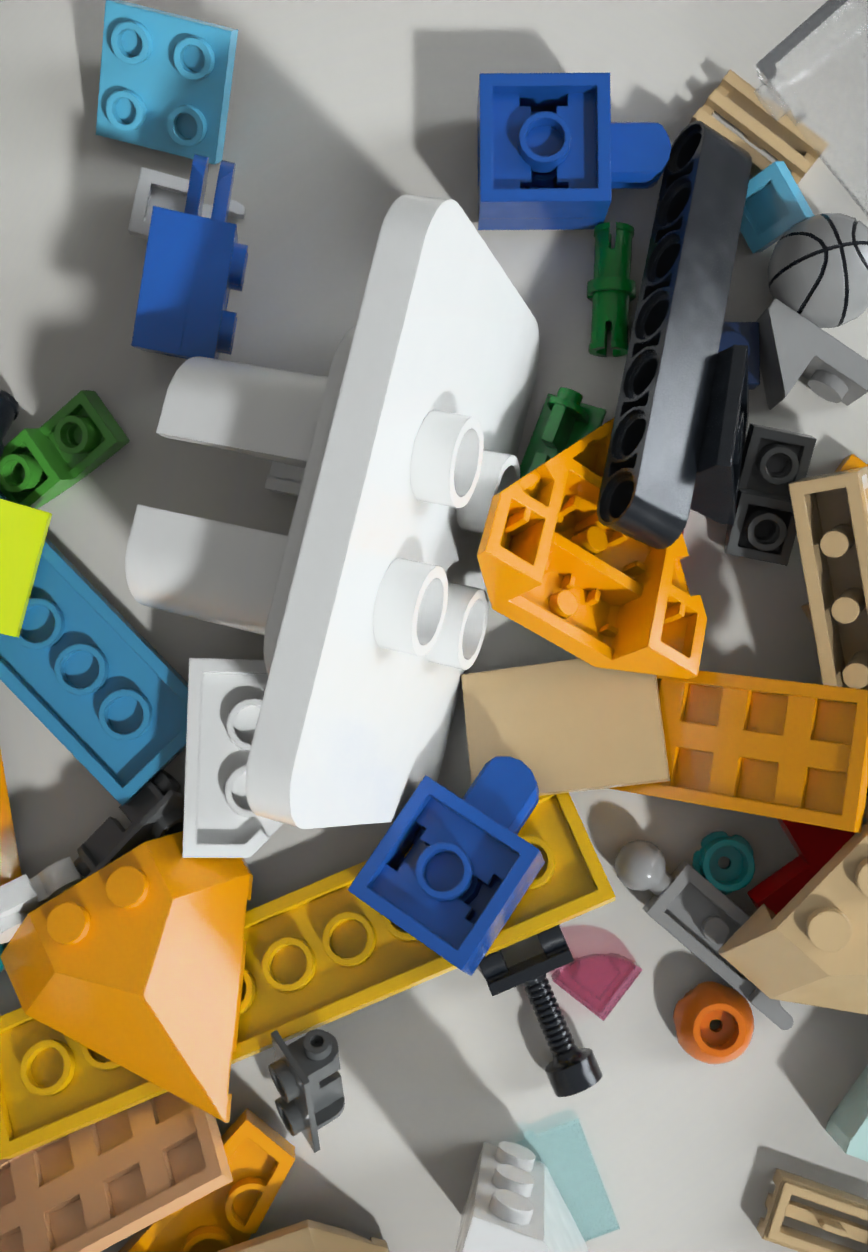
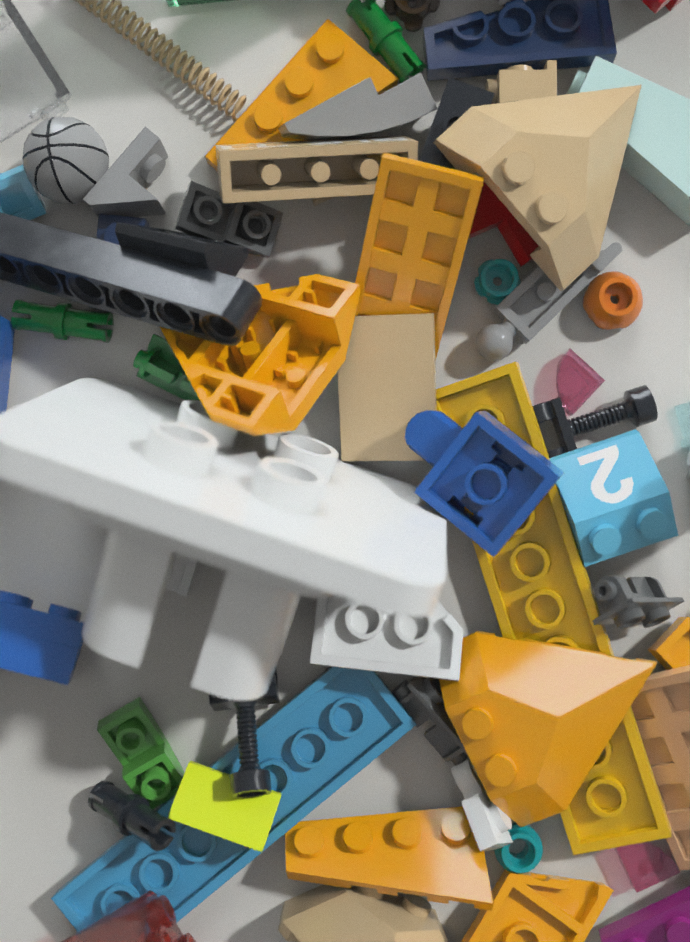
camera: 90 degrees left, 0 degrees up
(32, 594) = (250, 778): none -> black bar
(444, 1047) = (614, 497): none -> medium azure slope

